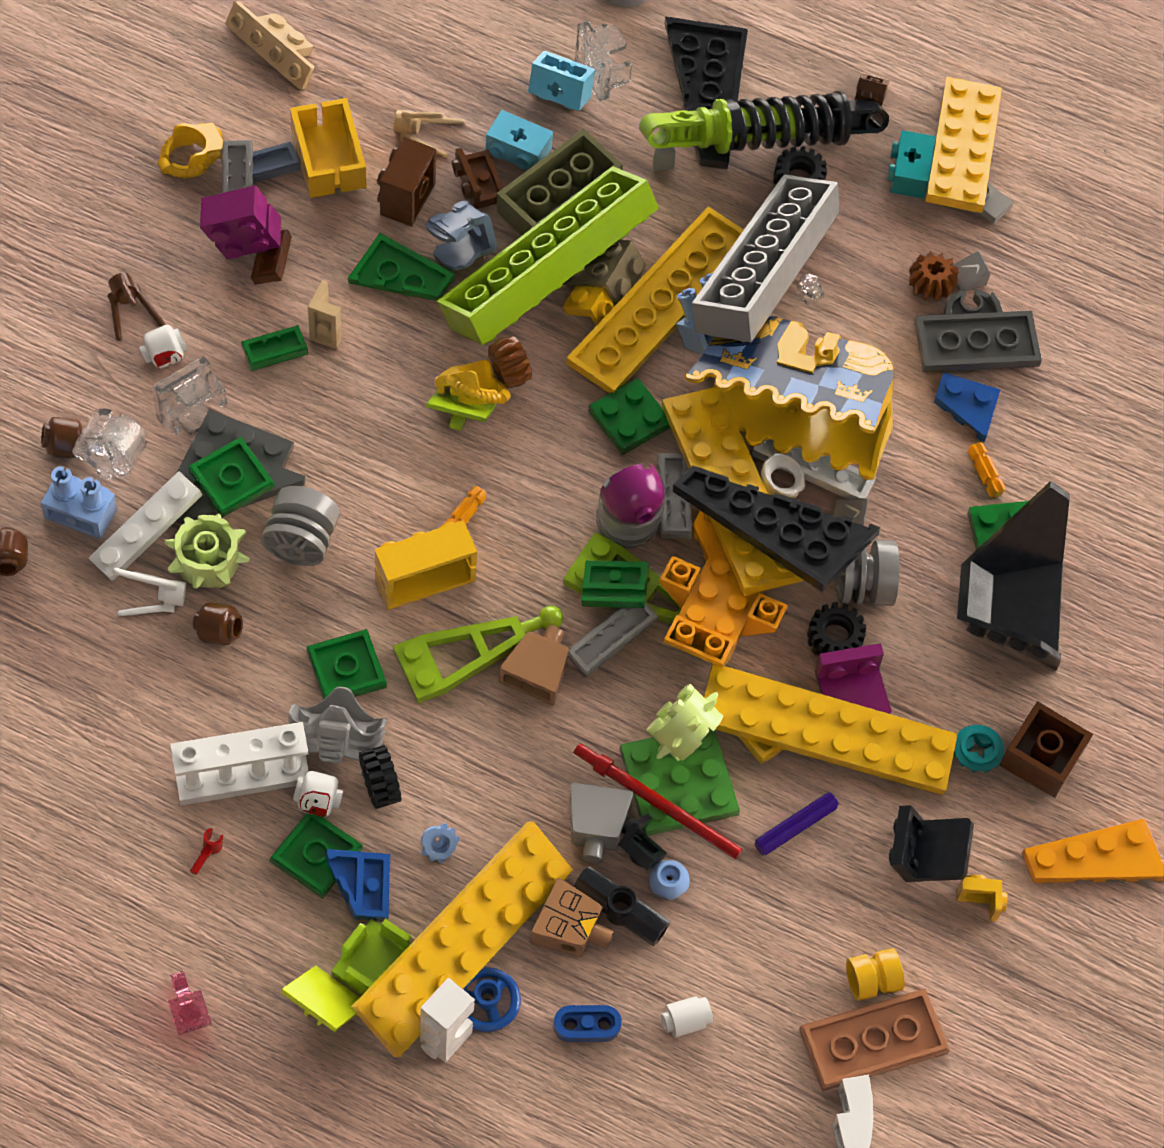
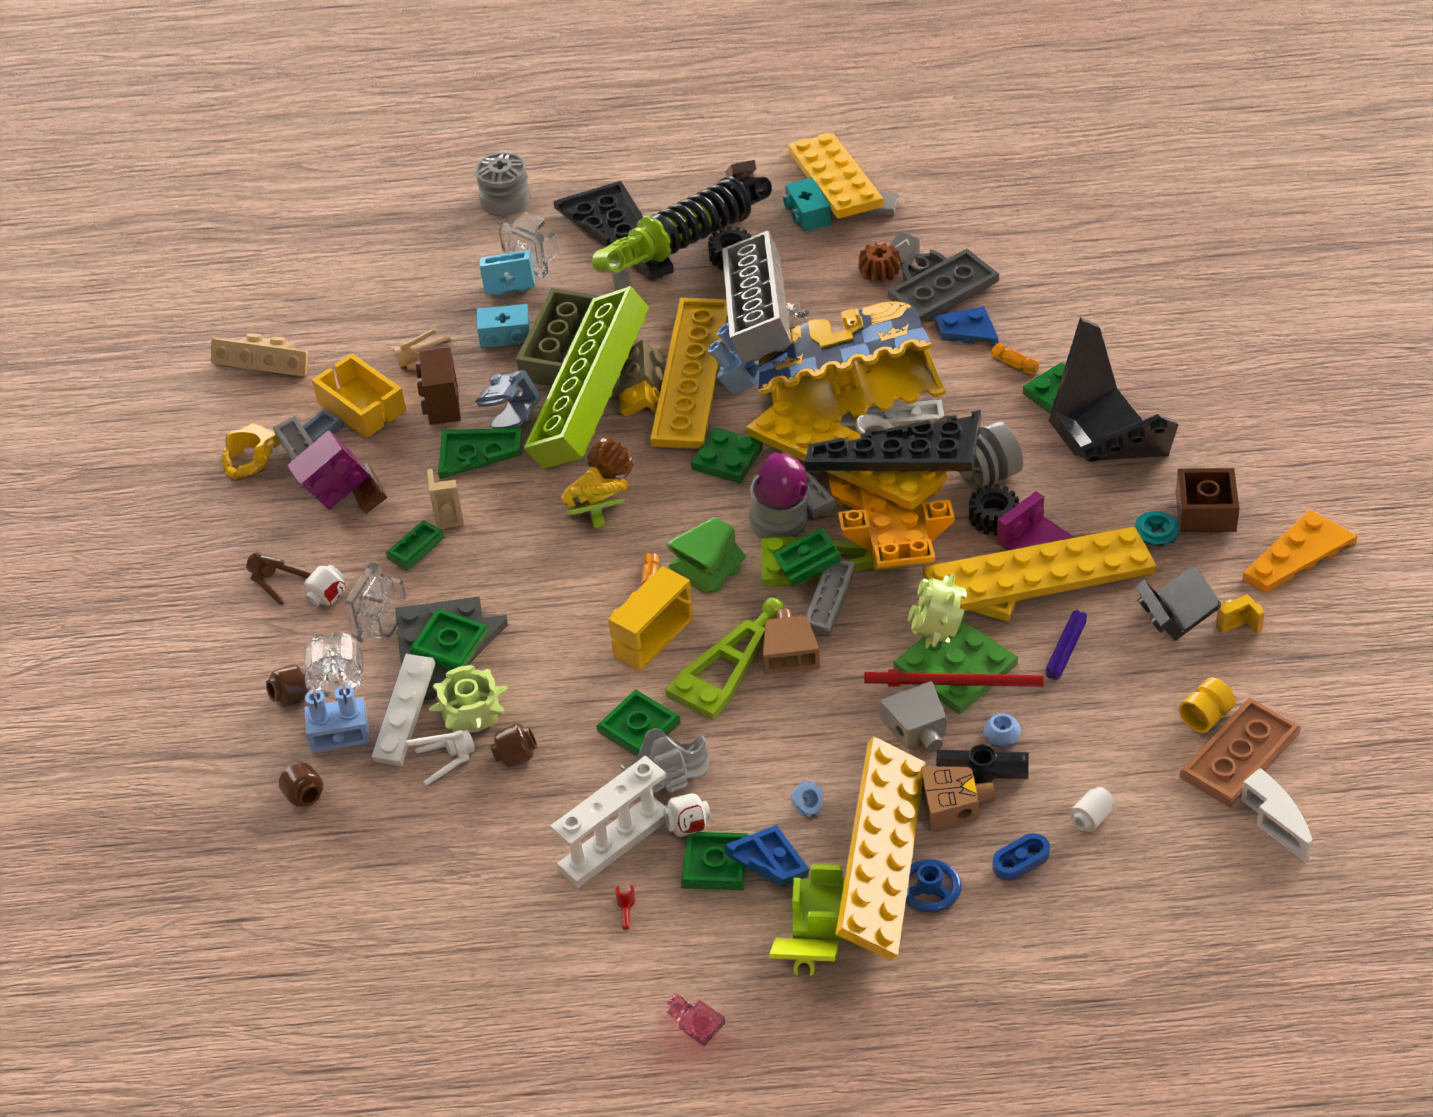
camera: 20 degrees left, 15 degrees down
(300, 525) = (531, 642): light grey wheel -> none
(380, 776) = (728, 775): black tyre -> none
(446, 1020) = (917, 902): white arch -> none
(478, 177) = (488, 360): reddish brown bracket -> none
(527, 524) = (706, 555): none -> bright green piece
(638, 845) = (968, 721): black bracket -> none

